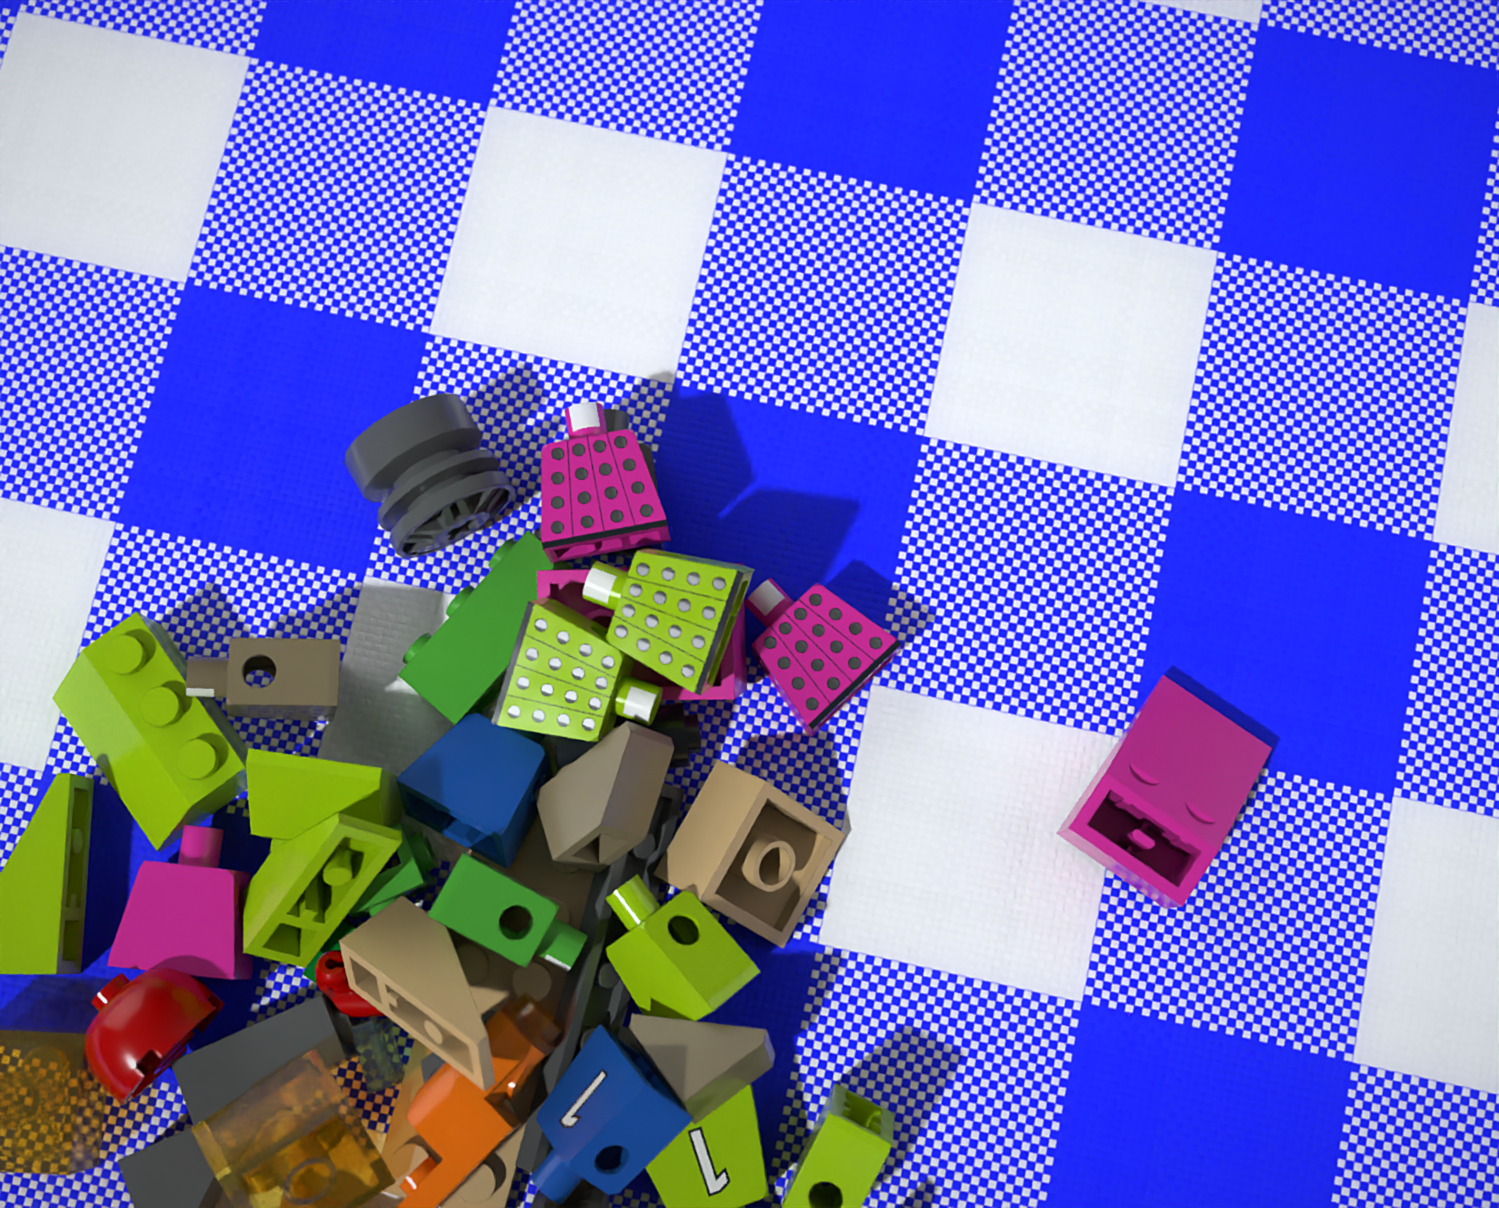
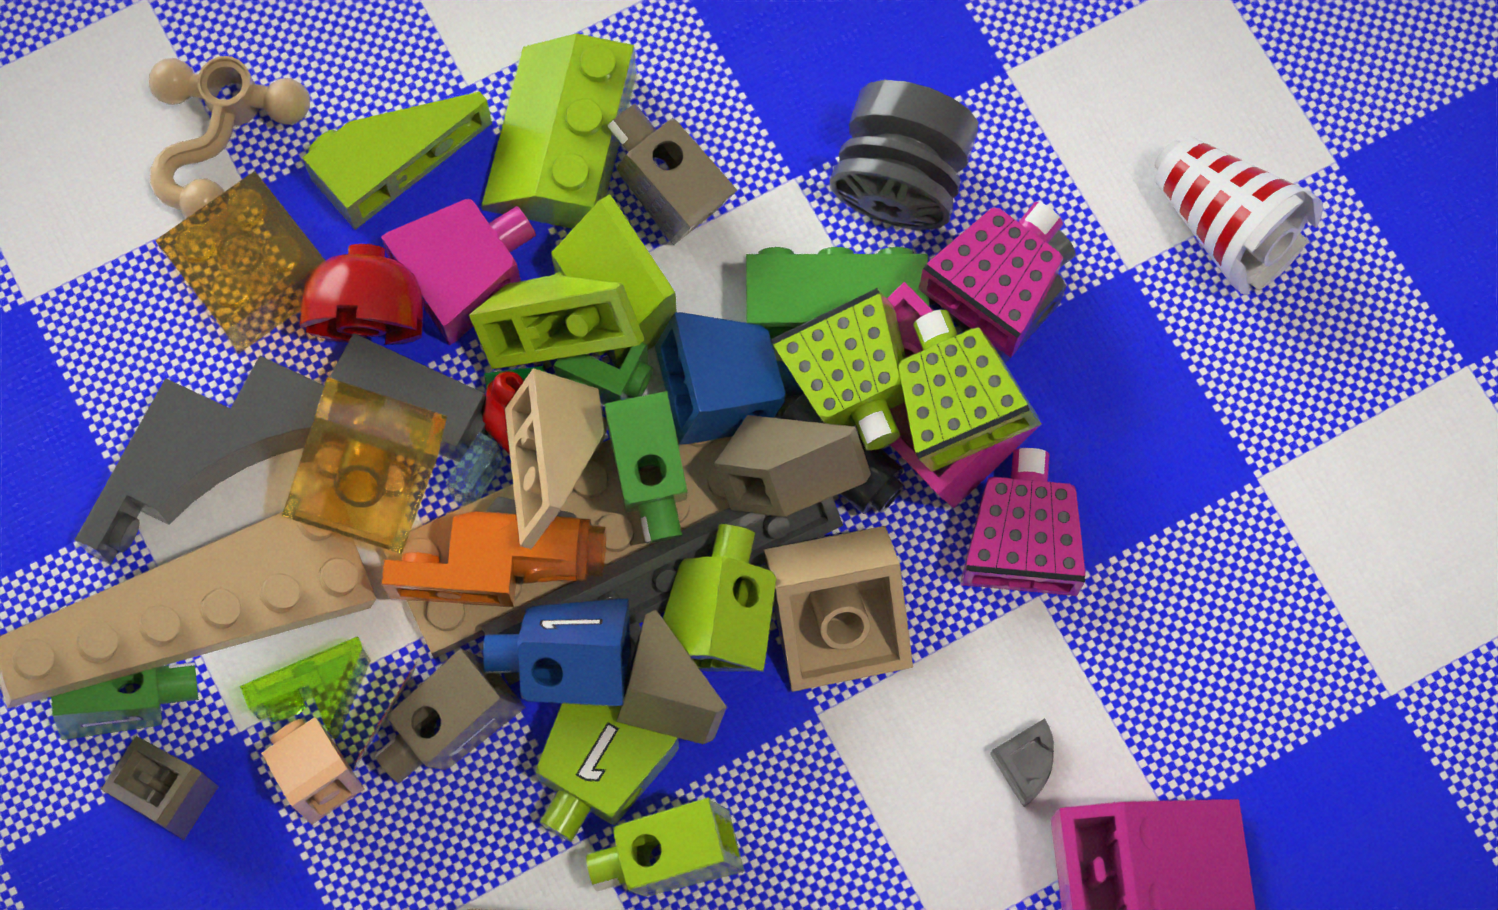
camera: 45 degrees right, 5 degrees down
(703, 261) = (1237, 210): none -> white cone
(995, 810) = (1027, 761): none -> flat silver tile

